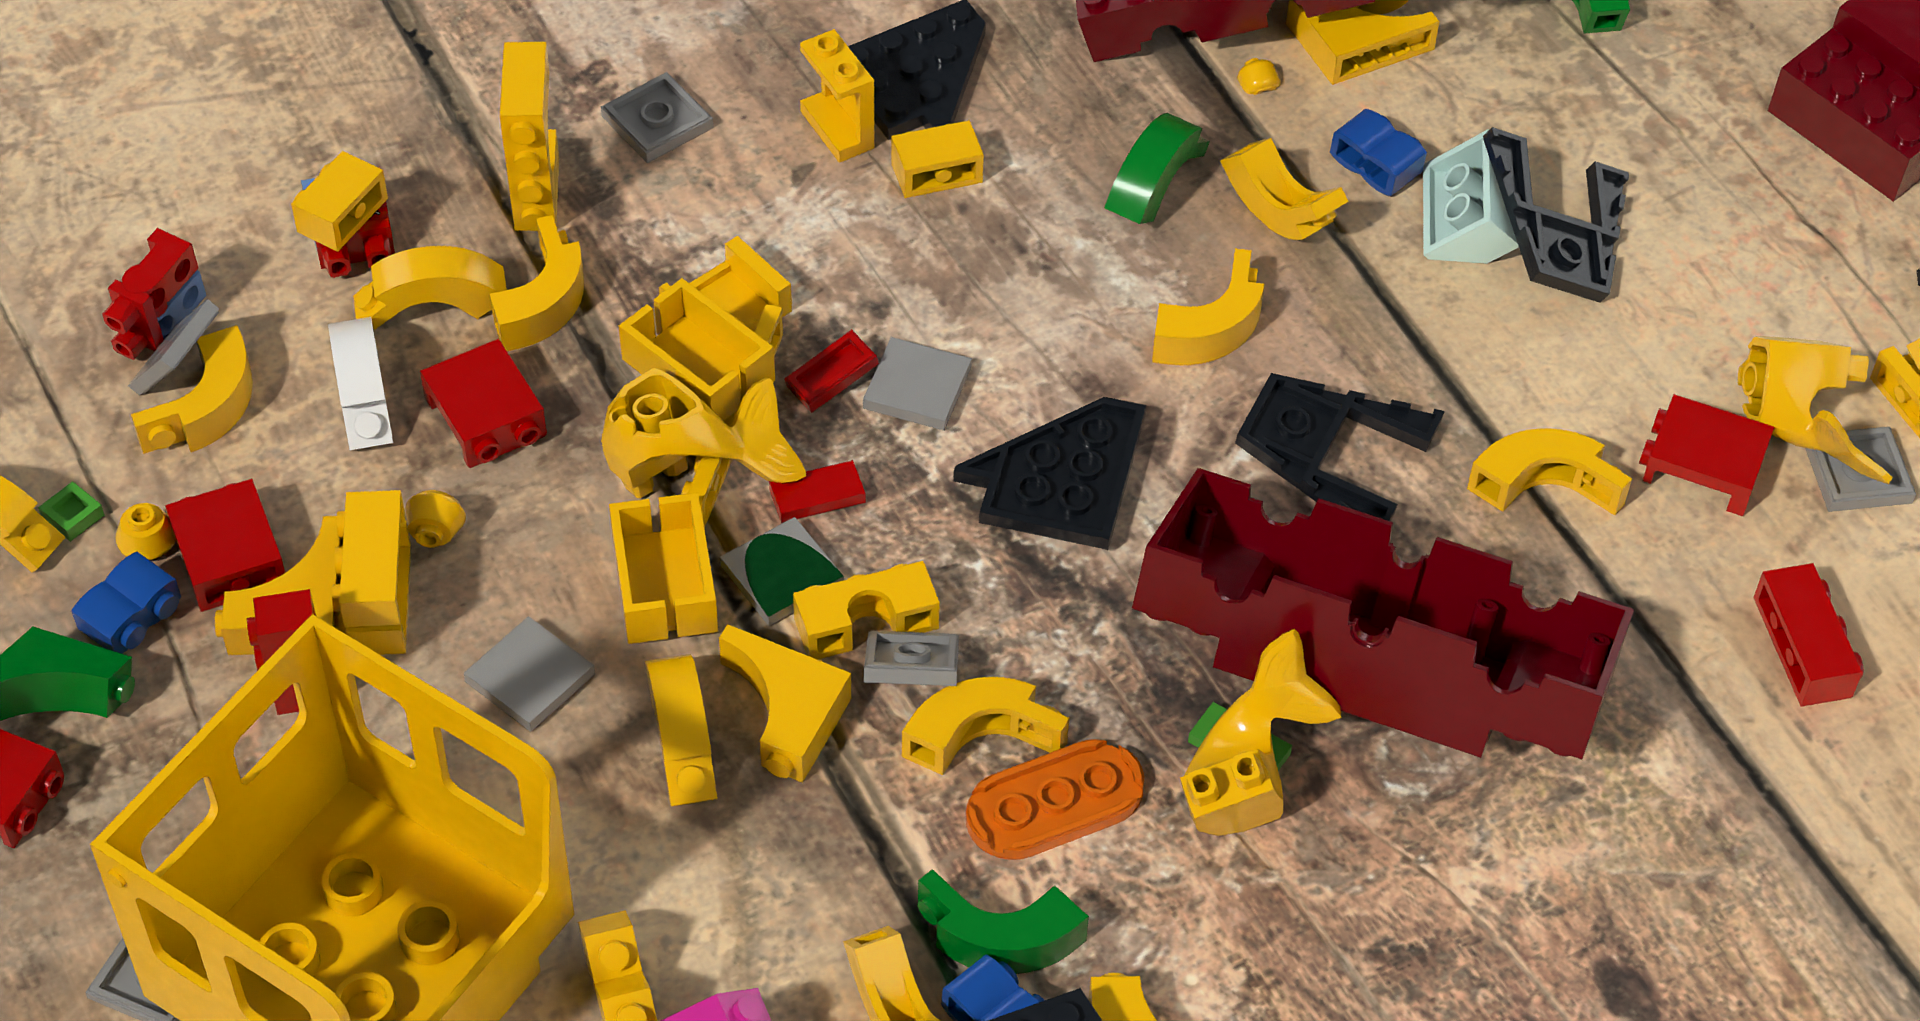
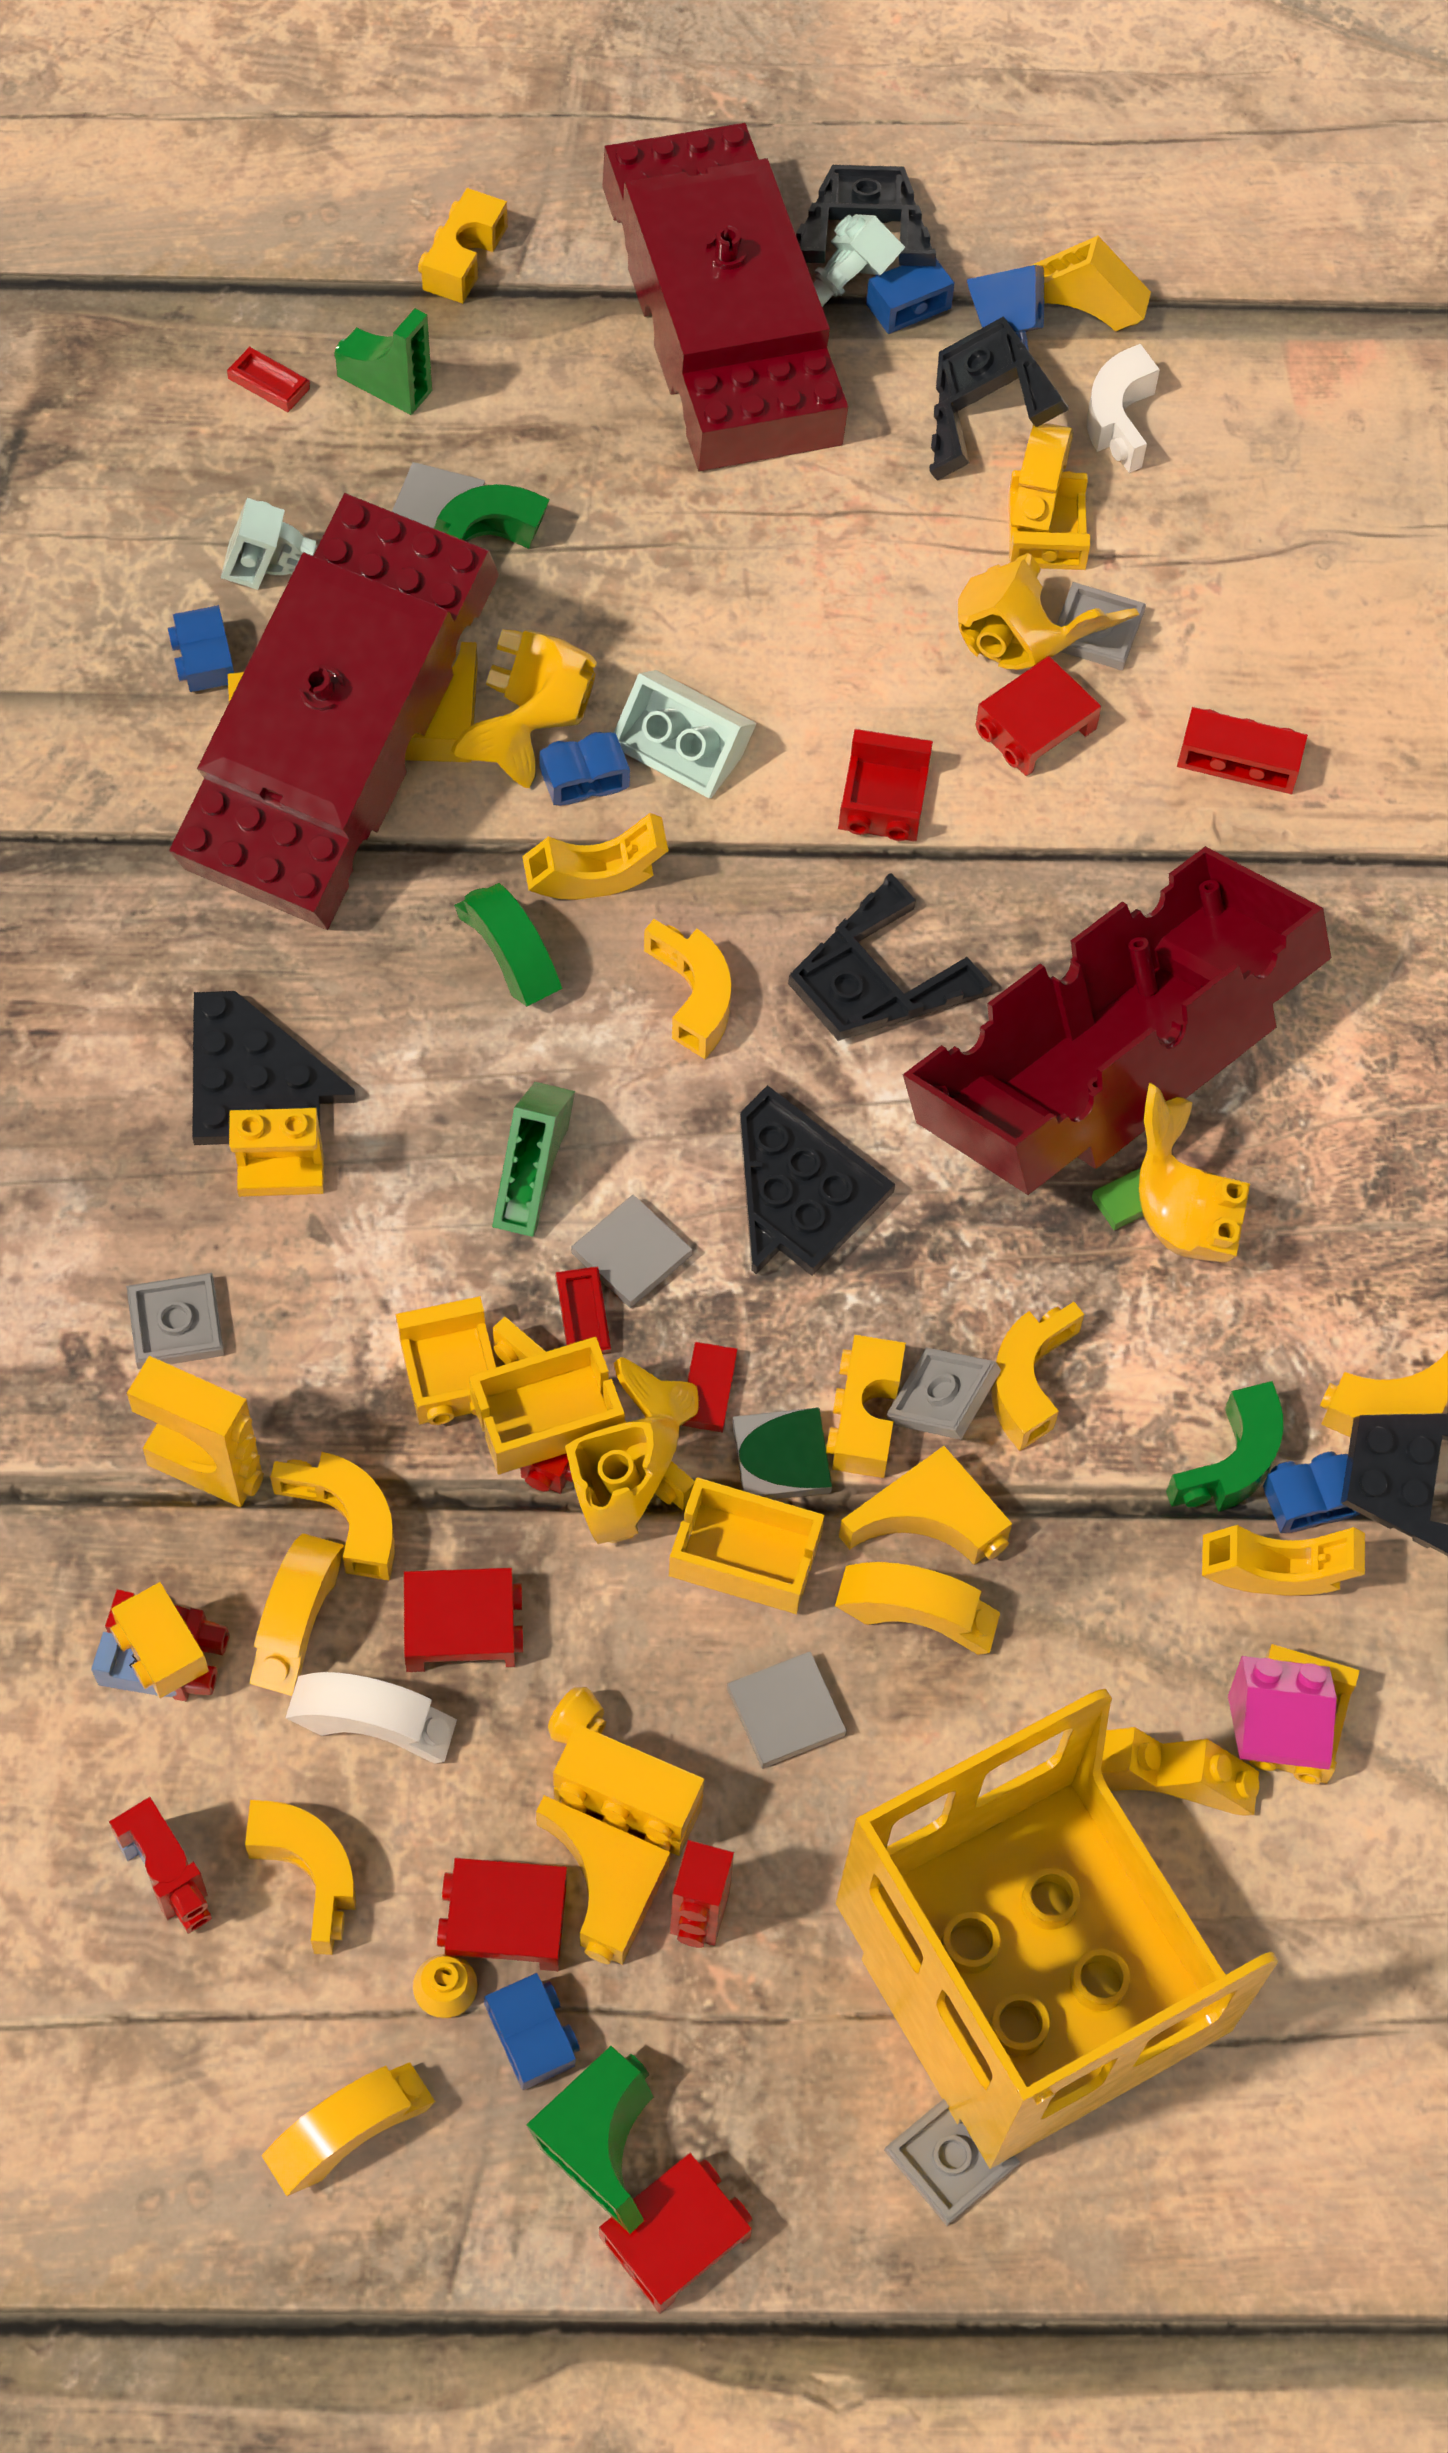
camera: 65 degrees left, 10 degrees up
(71, 511) = (376, 2045): bright green tile -> none
(174, 347) = (243, 1870): light grey tile -> none
(937, 159) = (383, 1109): yellow brick -> none
(960, 254) = (532, 1146): none -> green arch
(1054, 799) = (1124, 1356): orange tile -> none
(1258, 76) = (430, 812): yellow piece -> none
(1433, 86) = (551, 687): none -> yellow hips
(1536, 373) = (885, 785): none -> red panel
(1547, 458) = (994, 809): yellow arch -> none
(1555, 246) = (771, 692): black wing -> none

